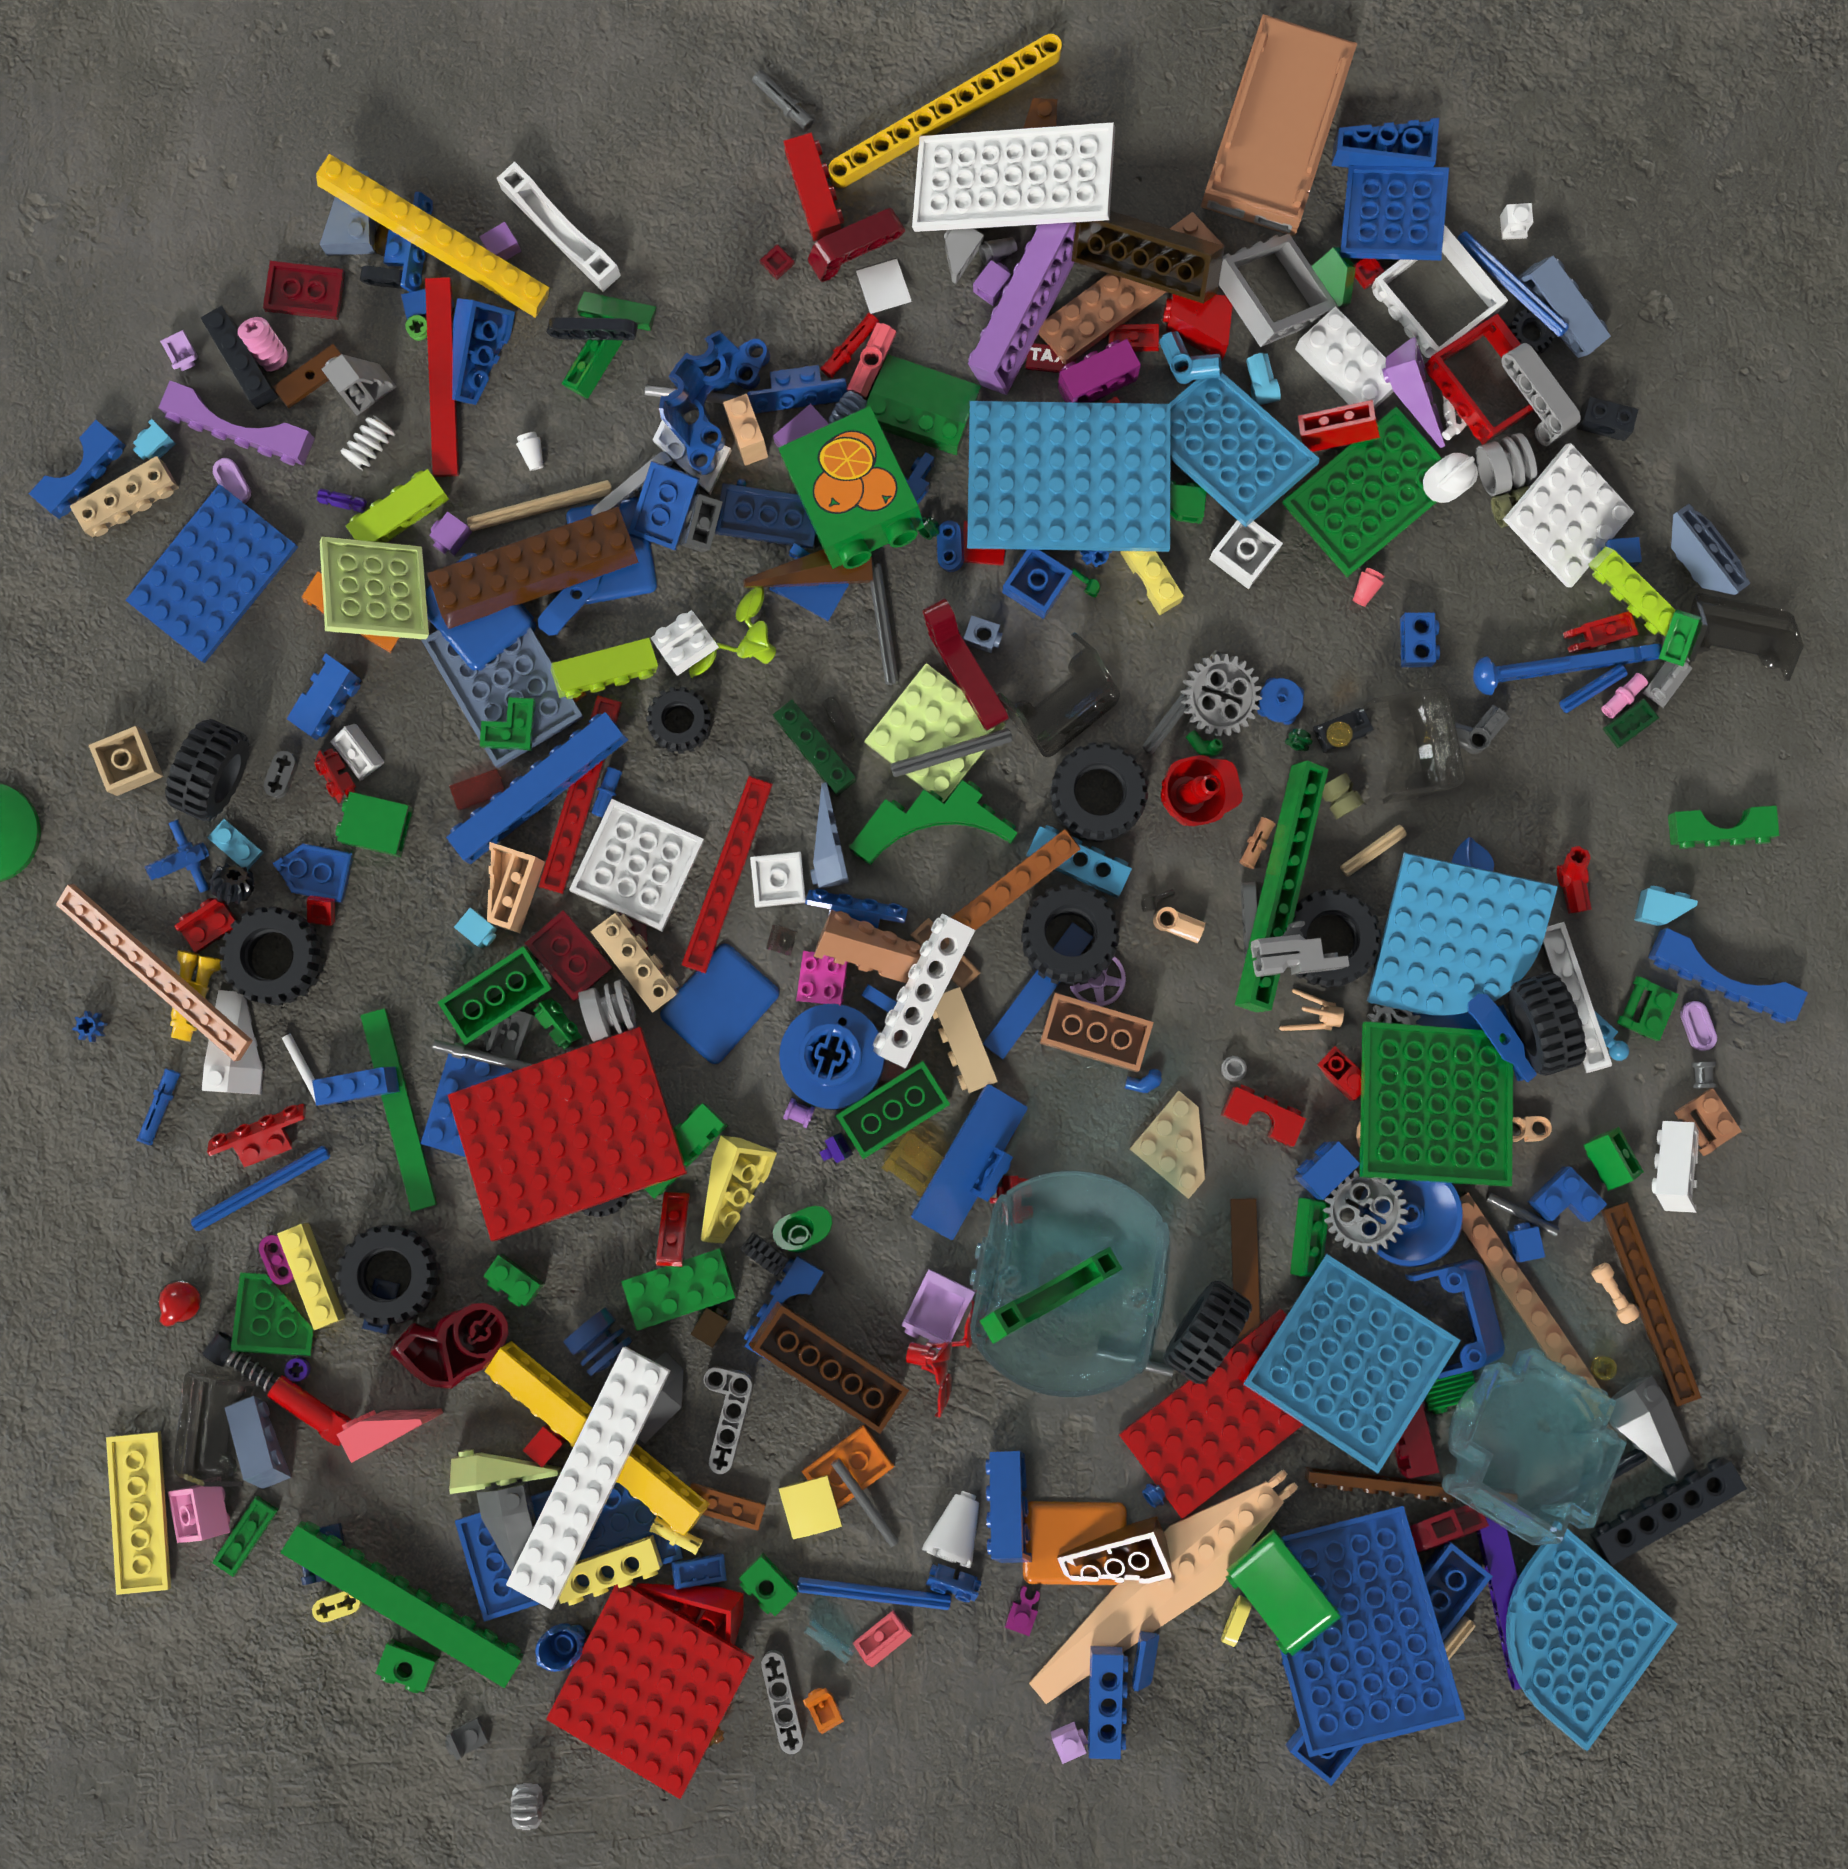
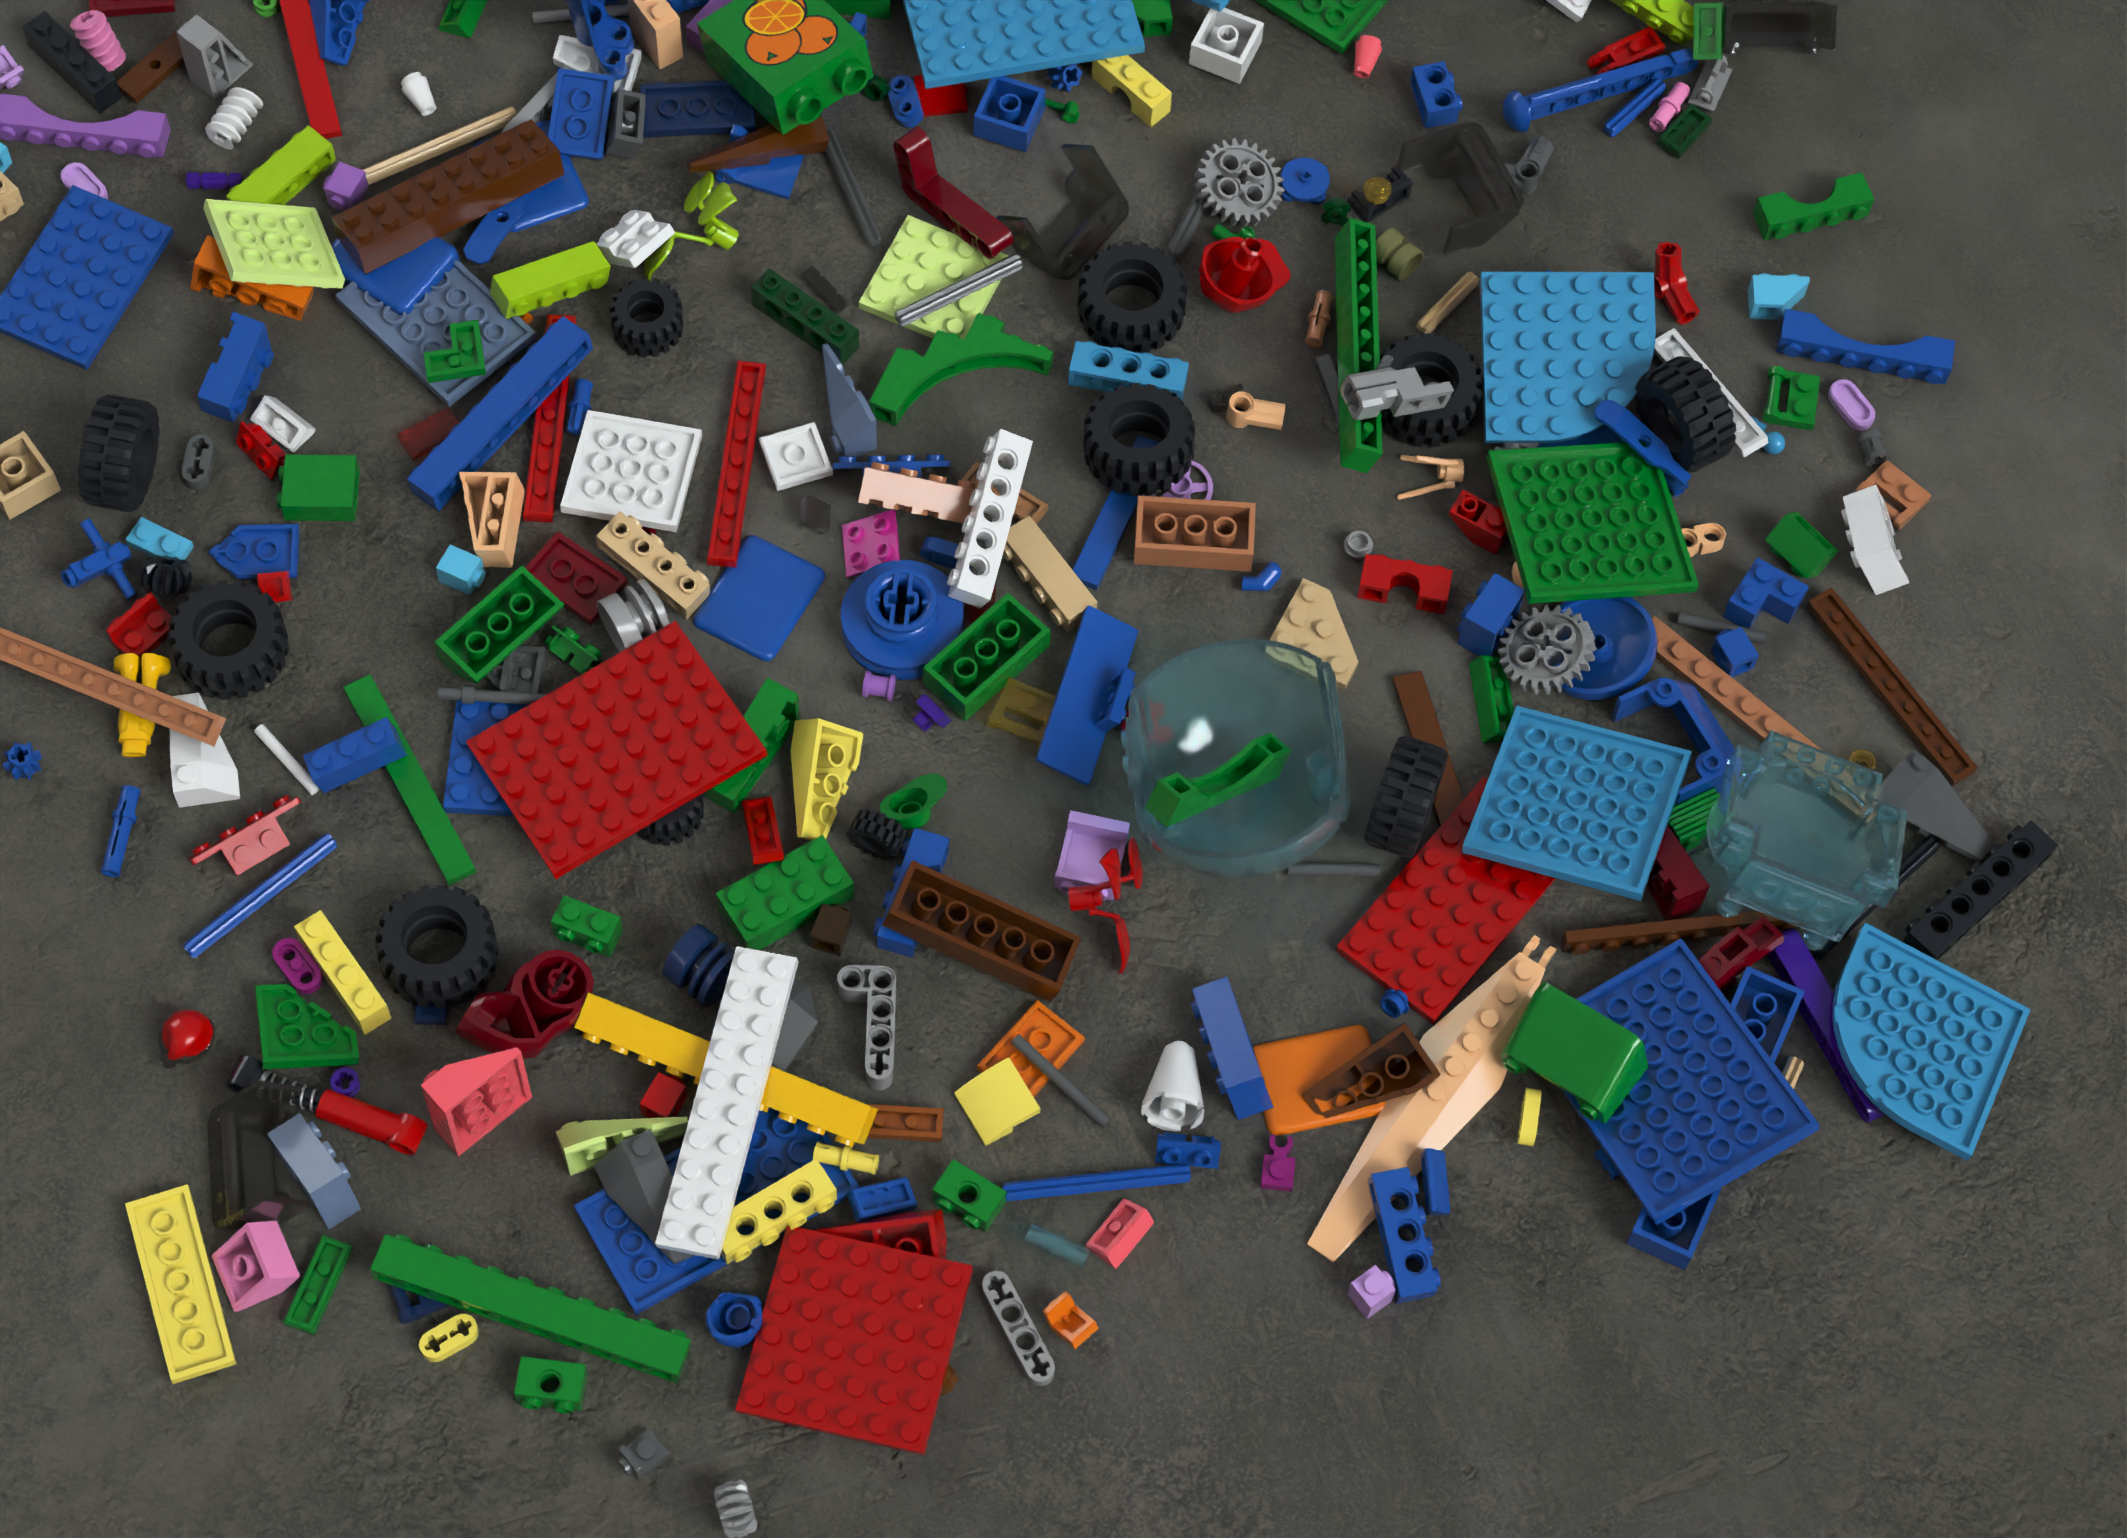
camera: 20 degrees left, 20 degrees down
(977, 624) = (964, 165): sand blue brick -> none
(1018, 881) = (1071, 394): dark orange plate -> none
(1626, 1311) = (1866, 699): light nougat piece -> none

